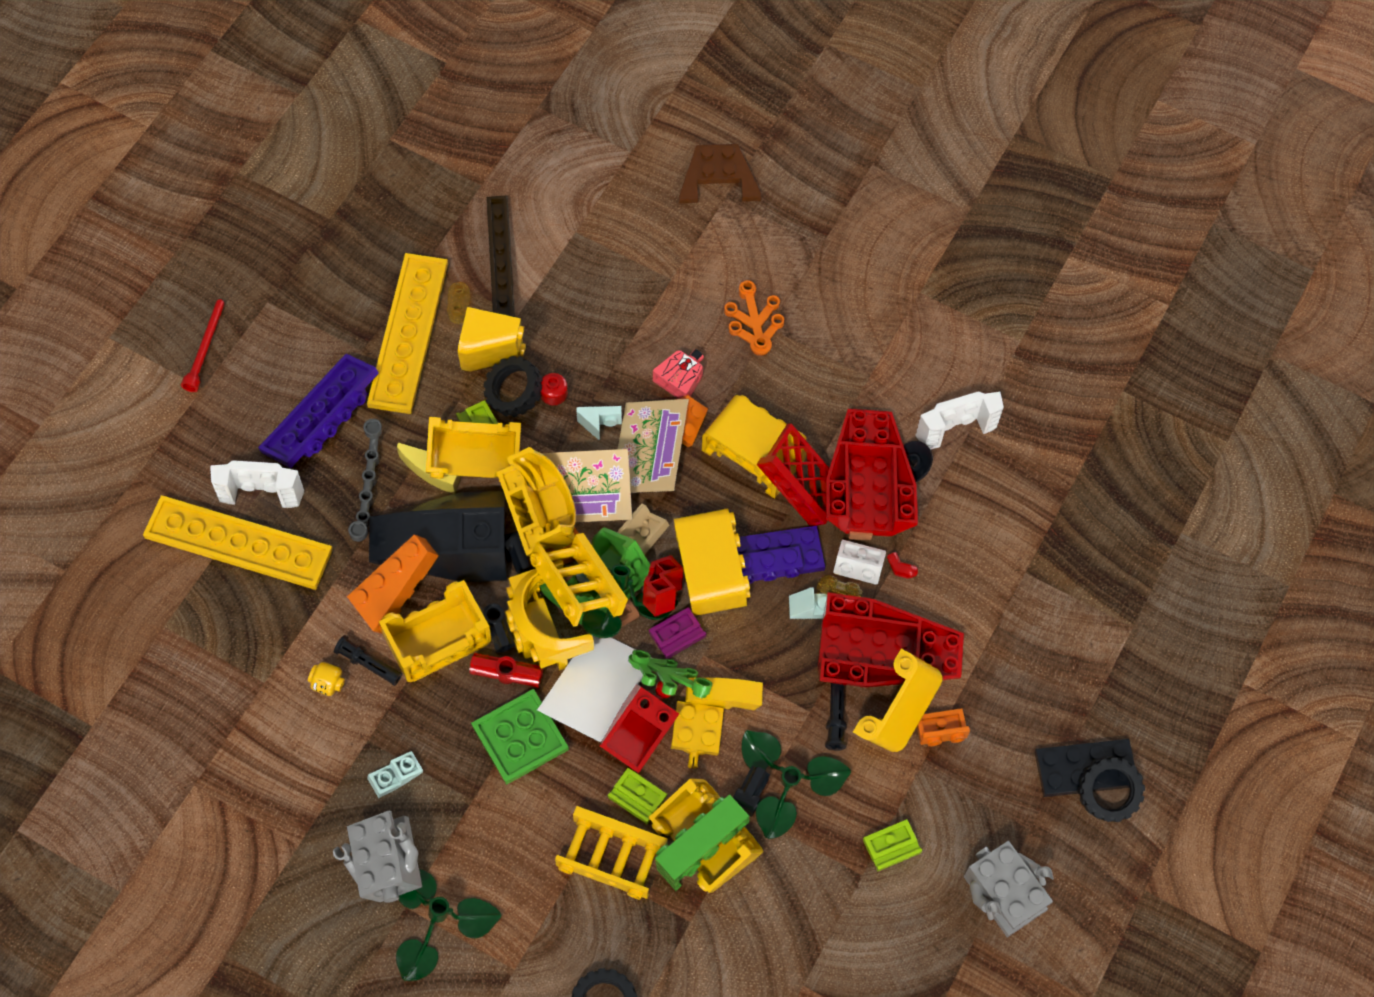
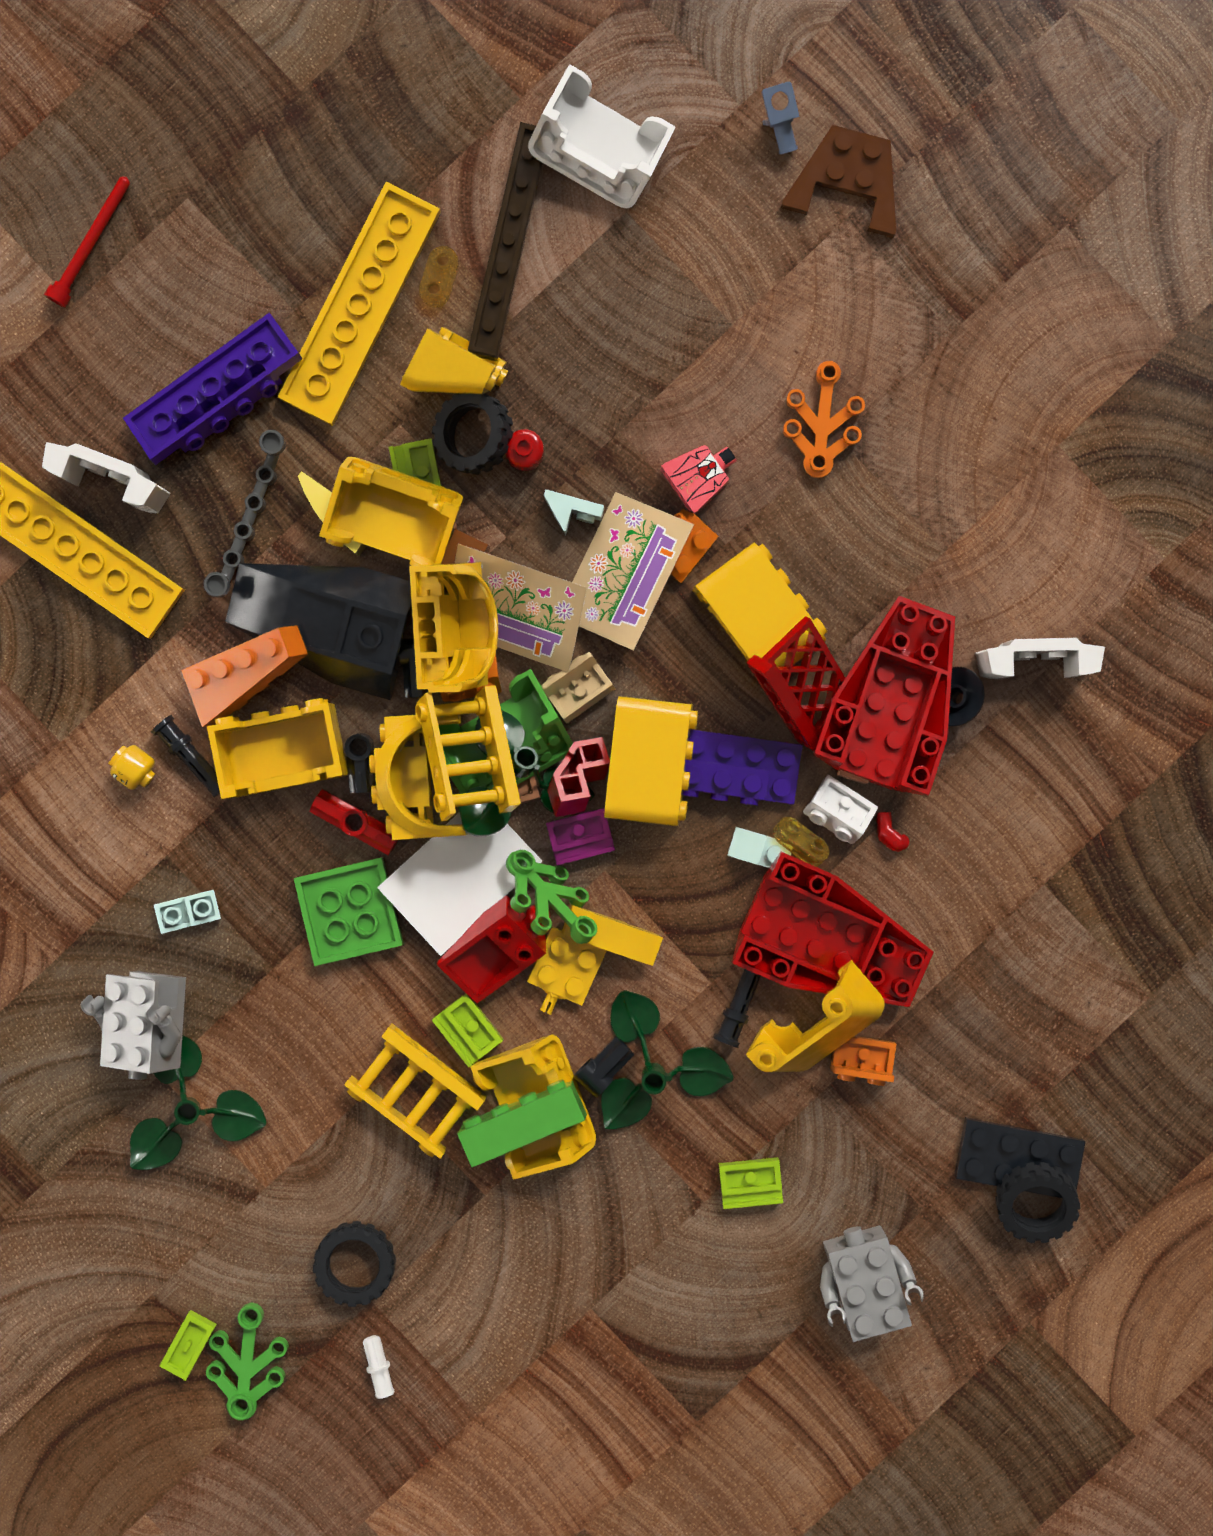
camera: 20 degrees right, 25 degrees up
(542, 195) = (597, 143): none -> white windscreen
(661, 147) = (781, 119): none -> sand blue bracket

